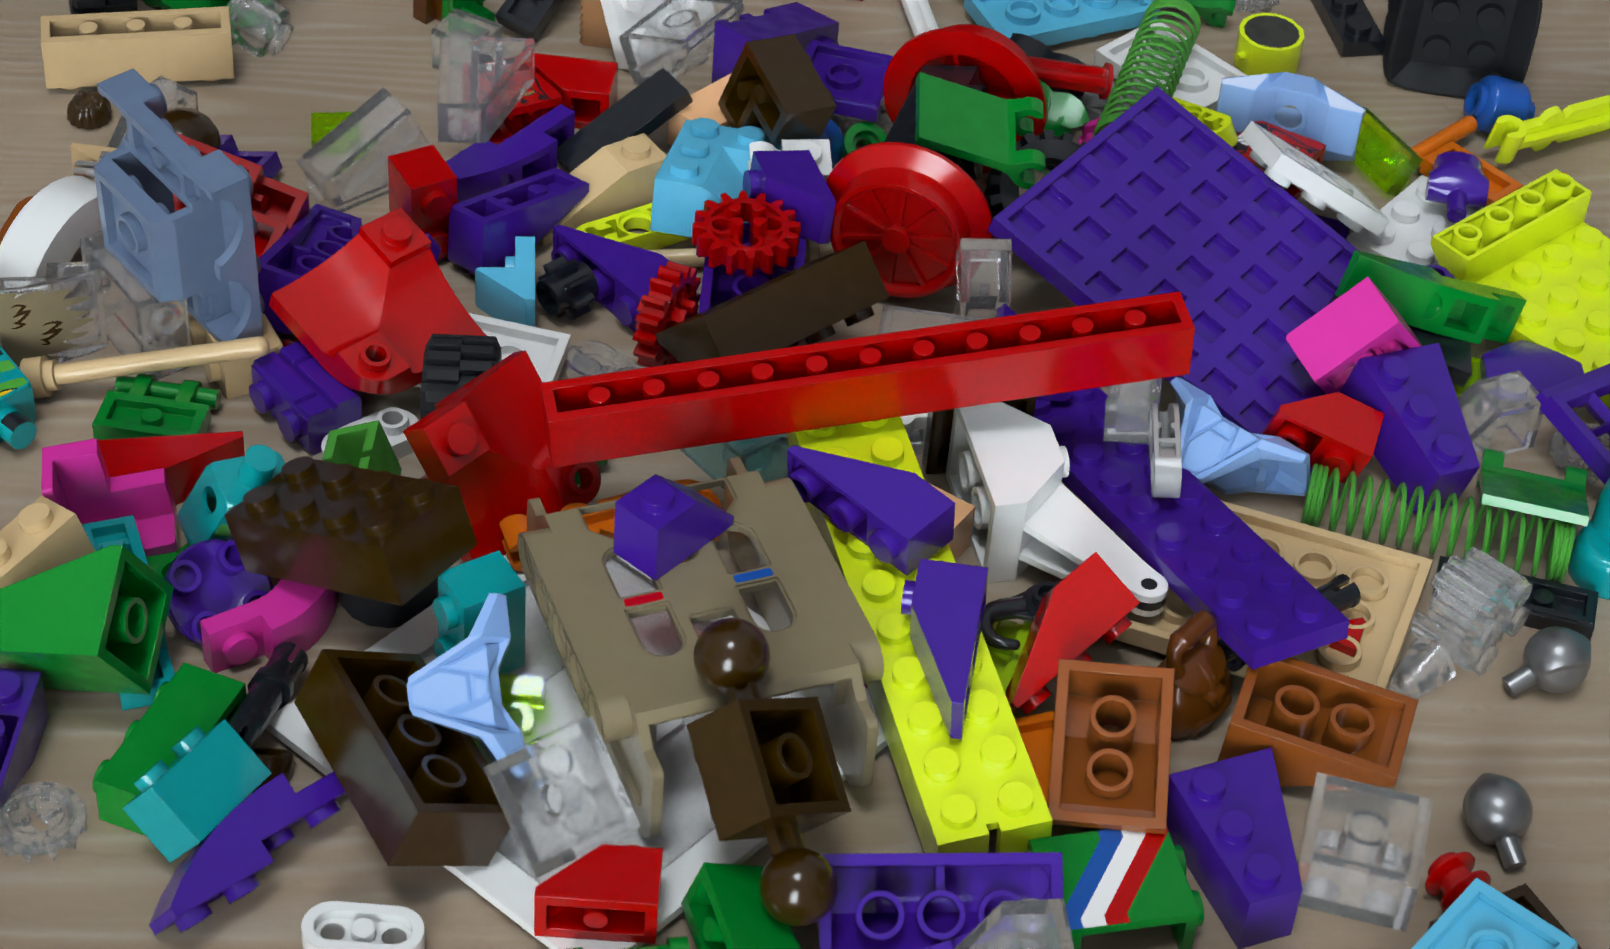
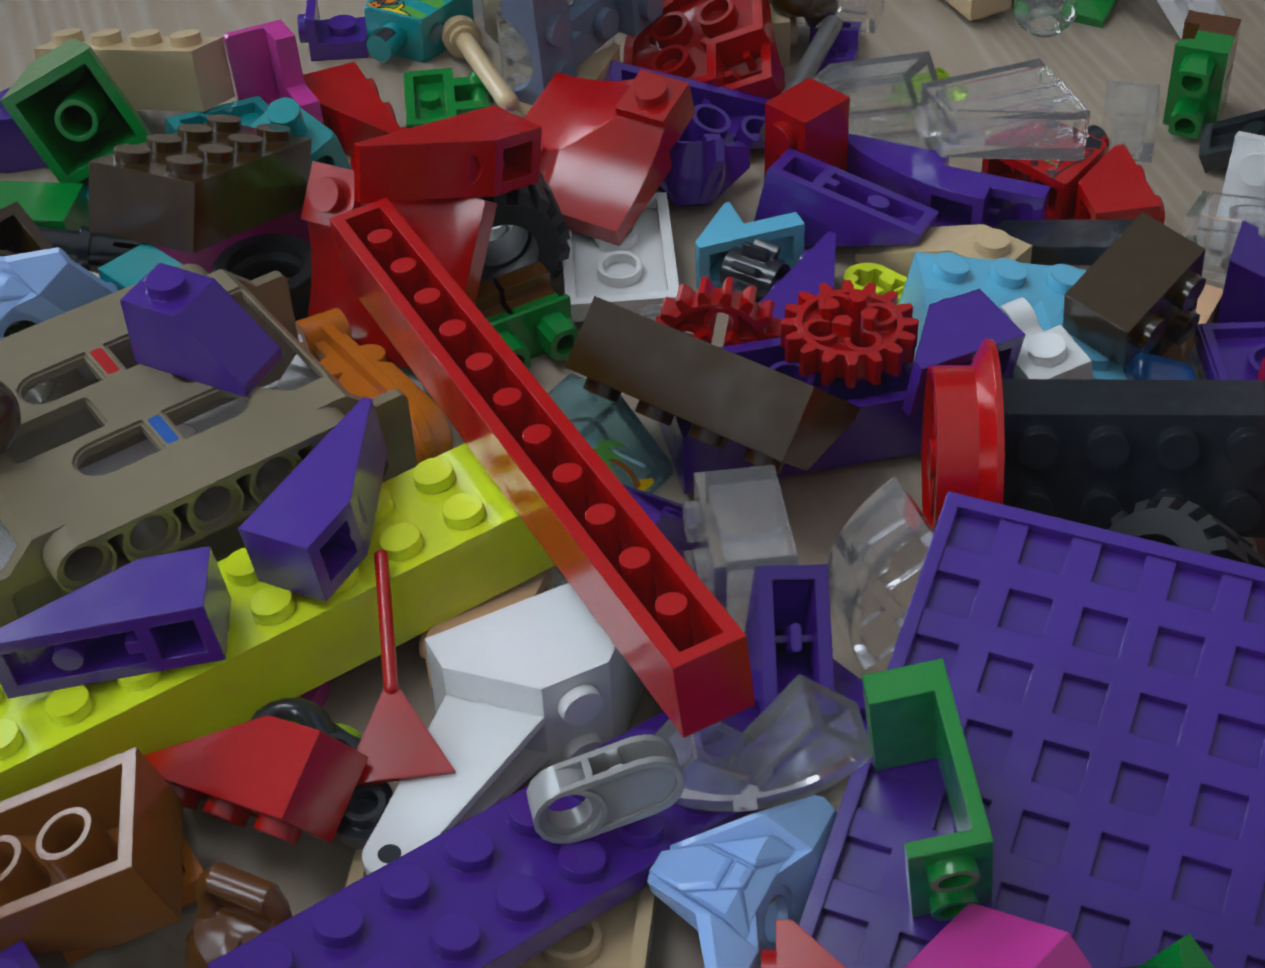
camera: 80 degrees right, 0 degrees up
(317, 198) = (814, 54): none -> flat silver bar
(481, 337) = (450, 158): none -> red slope
(978, 127) = (1149, 437): green flag -> none
(1059, 550) = (395, 736): none -> red piece
(1240, 300) = (917, 720): none -> green panel

